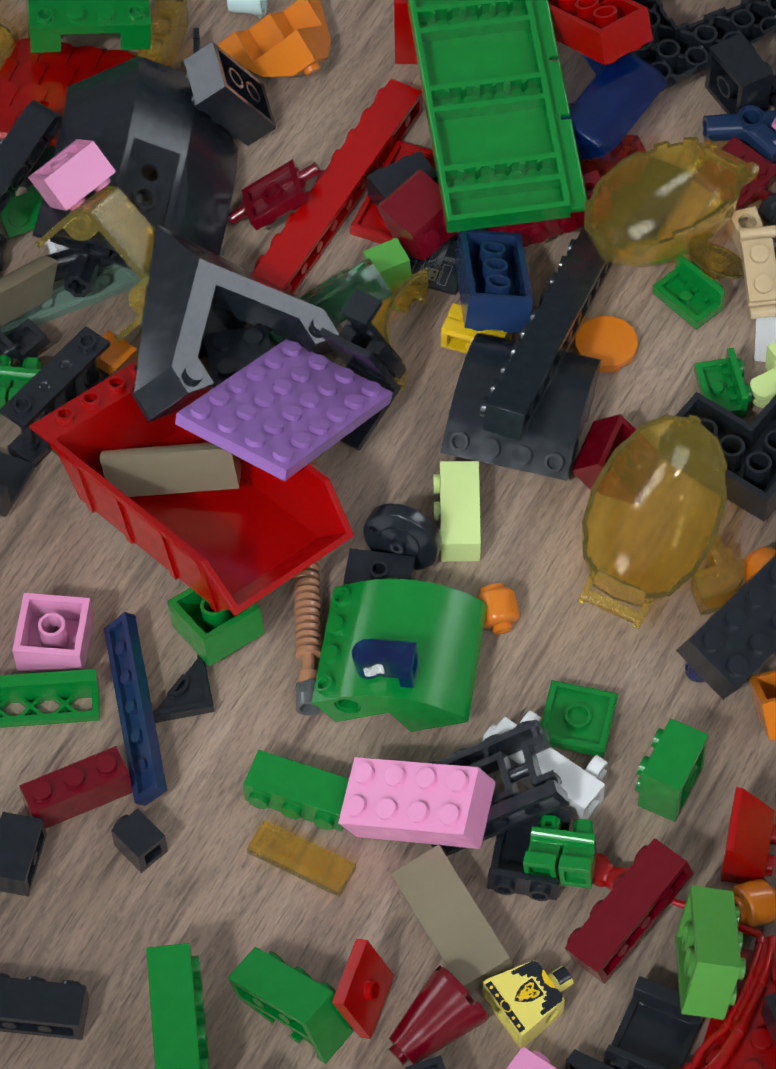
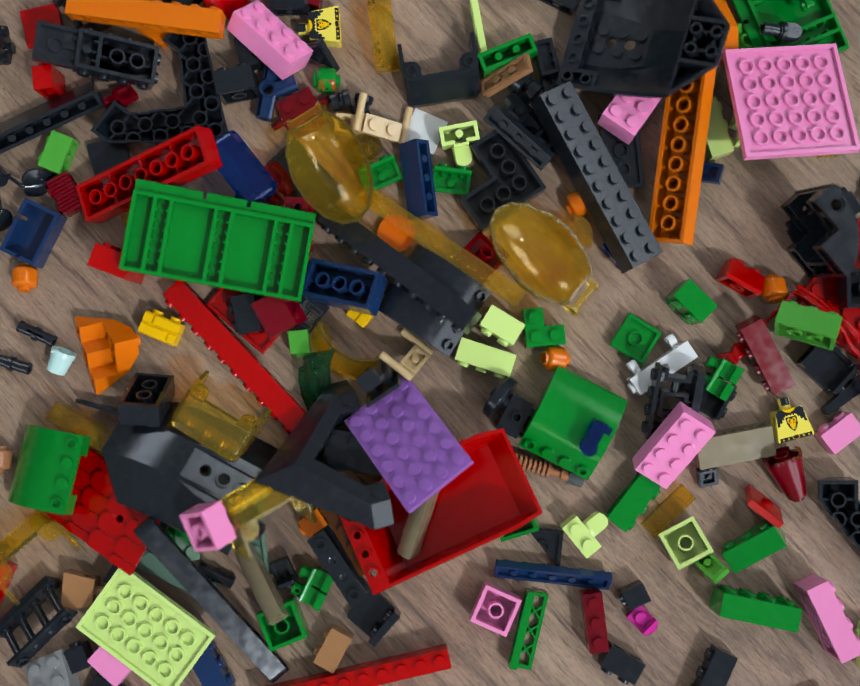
camera: 70 degrees left, 30 degrees up
(100, 869) = (643, 620): none -> dark pink bracket
(214, 181) = (215, 426): none -> clear yellow windscreen
(221, 730) = (584, 532): none -> yellowish green brick
(229, 941) = (712, 568): none -> bright green slope
(254, 883) = (685, 543): none -> yellowish green brick
(274, 195) = (228, 391): dark red plate -> none
(340, 97) = (161, 328): none -> yellow brick
(383, 897) = (707, 477): none -> black tile
(412, 402) = (413, 360): none -> tan plate
(517, 508) = (501, 326): none -> yellowish green brick
(532, 568) = (538, 334): none -> green brick
(609, 388) = (447, 249): none -> clear yellow plate
(702, 340) = (418, 178): none -> dark blue brick

